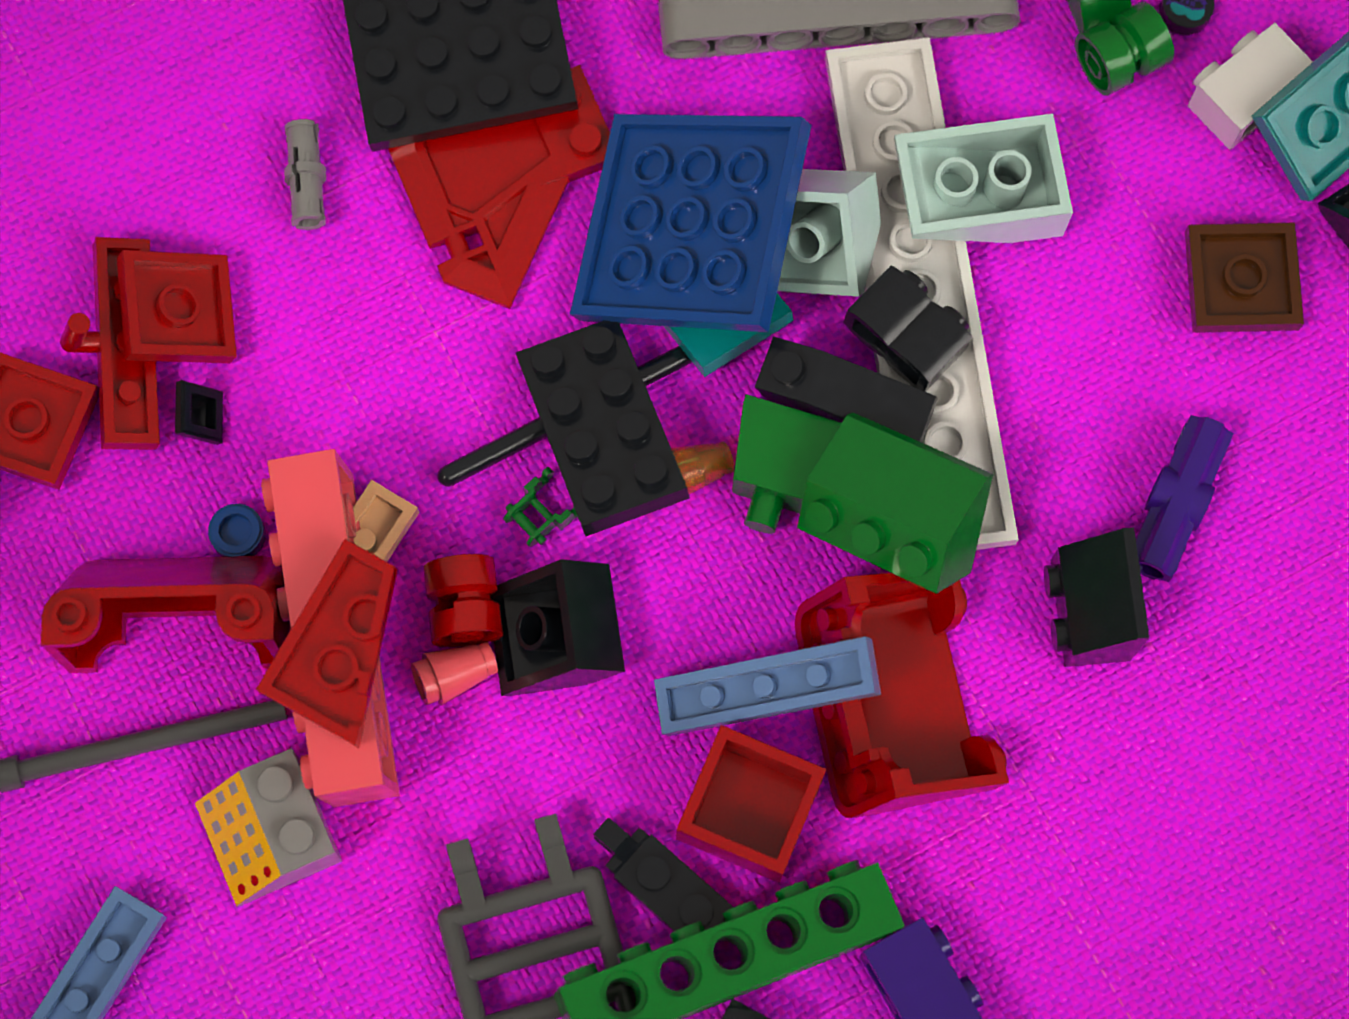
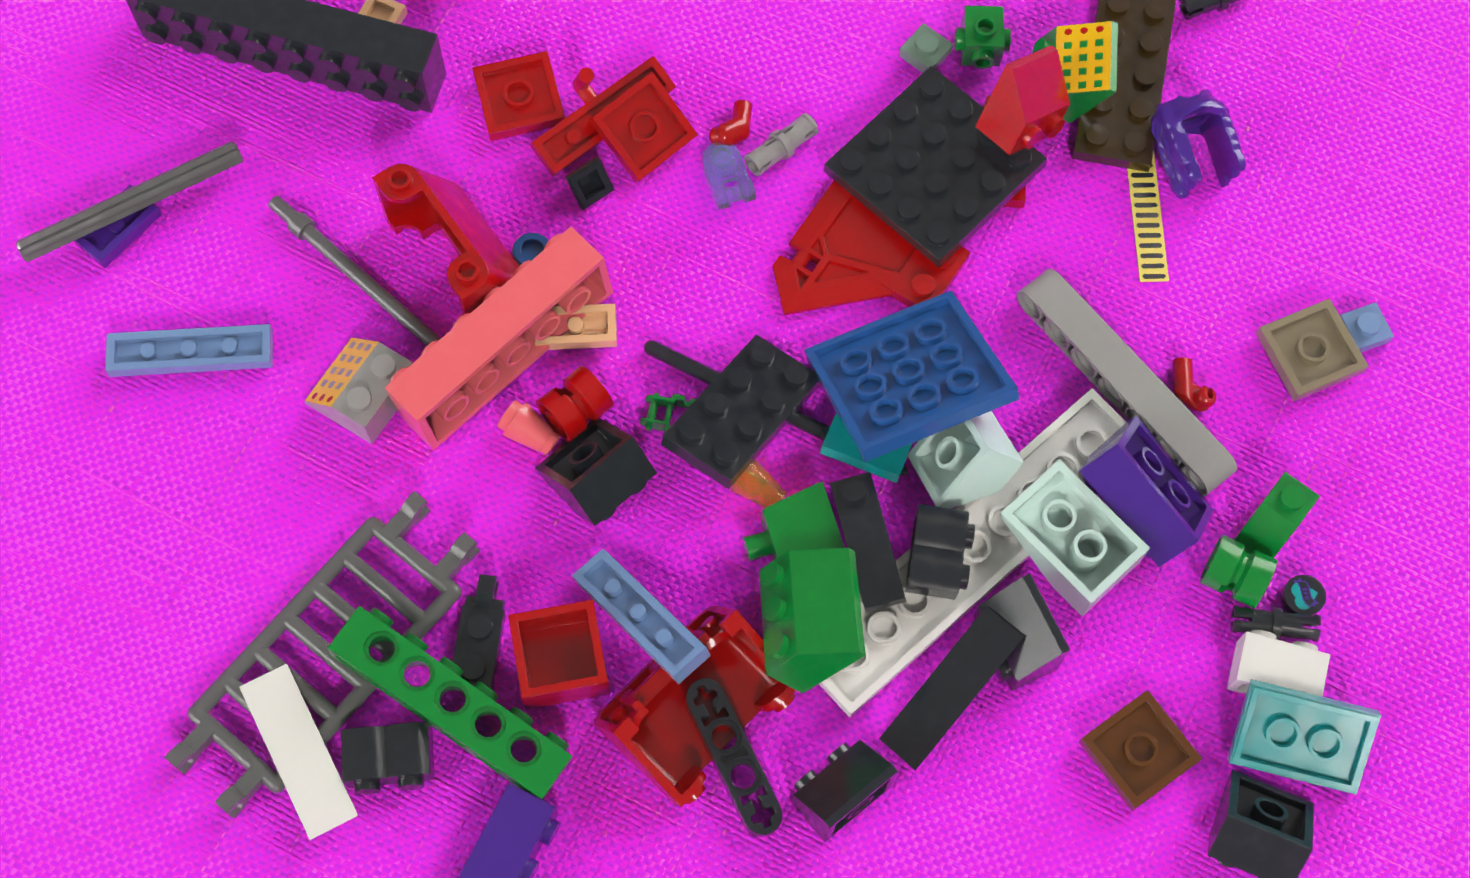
camera: 55 degrees right, 5 degrees down
(249, 211) = (735, 129): none -> red arm
(281, 252) = (725, 165): none -> clear light blue plate
(335, 645) = (480, 334): red wing -> none
(982, 74) = (1147, 491): none -> dark purple slope
(982, 688) = (737, 755): none -> black beam
(1051, 306) = (1043, 643): none -> slope
(1060, 417) = (951, 688): none -> black sticker
(1181, 496) = (955, 802): dark purple piece -> none
(1198, 52) = (1277, 622): none -> black pin

